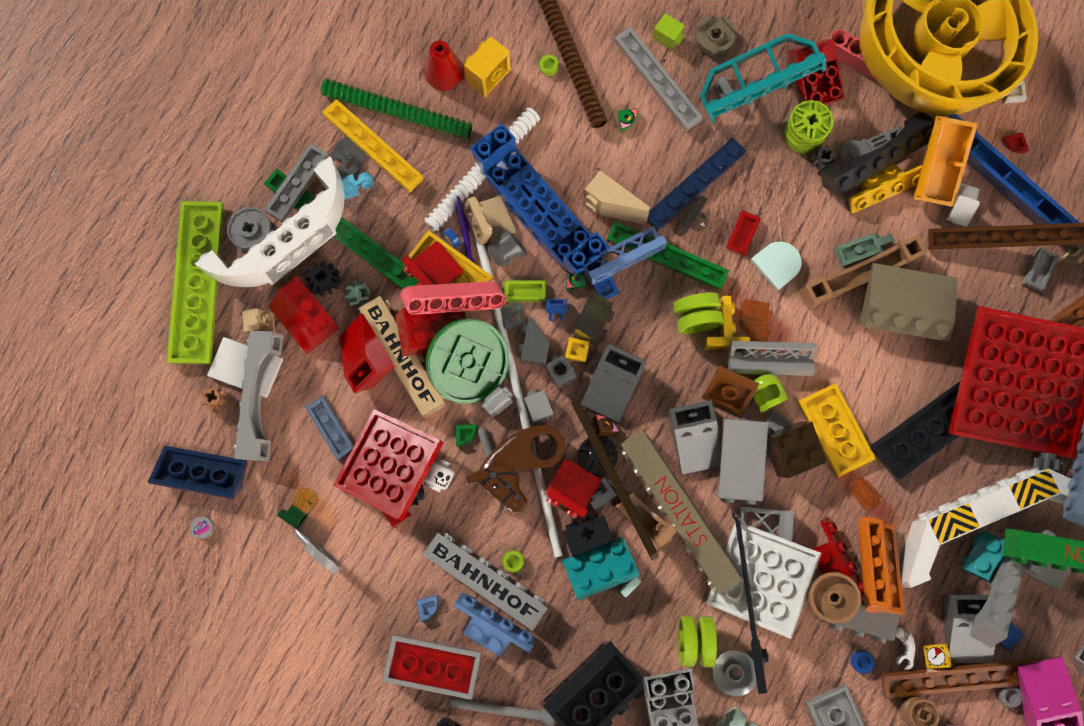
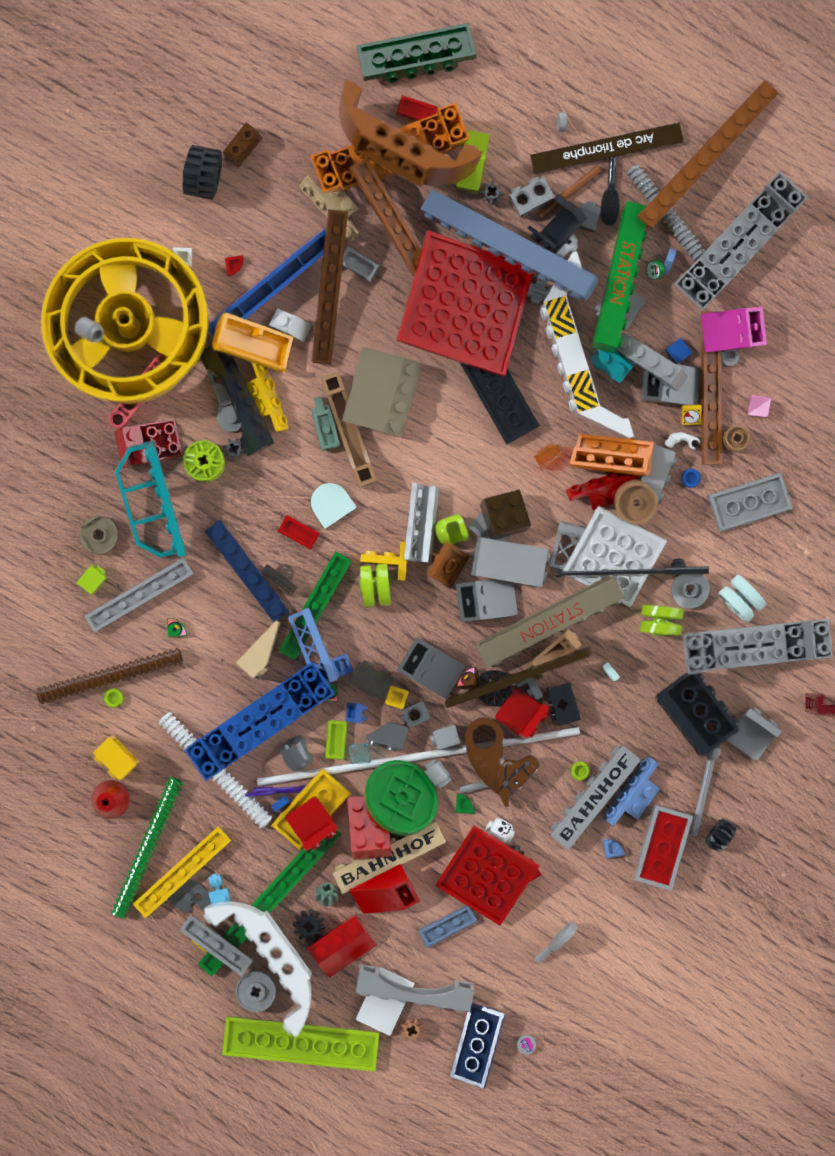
camera: 90 degrees left, 10 degrees up
(258, 321) = (345, 985): tan brick -> none
(300, 509) = (512, 951): leg -> none
(452, 297) = (344, 806): coral beam -> none
(488, 218) = (266, 767): tan bracket -> none
(600, 568) = (593, 695): teal plate -> none
(723, 87) = (157, 534): light grey tile -> none
(754, 319) = (384, 534): clear orange slope -> none
(837, 430) = (489, 472): yellow tile -> none

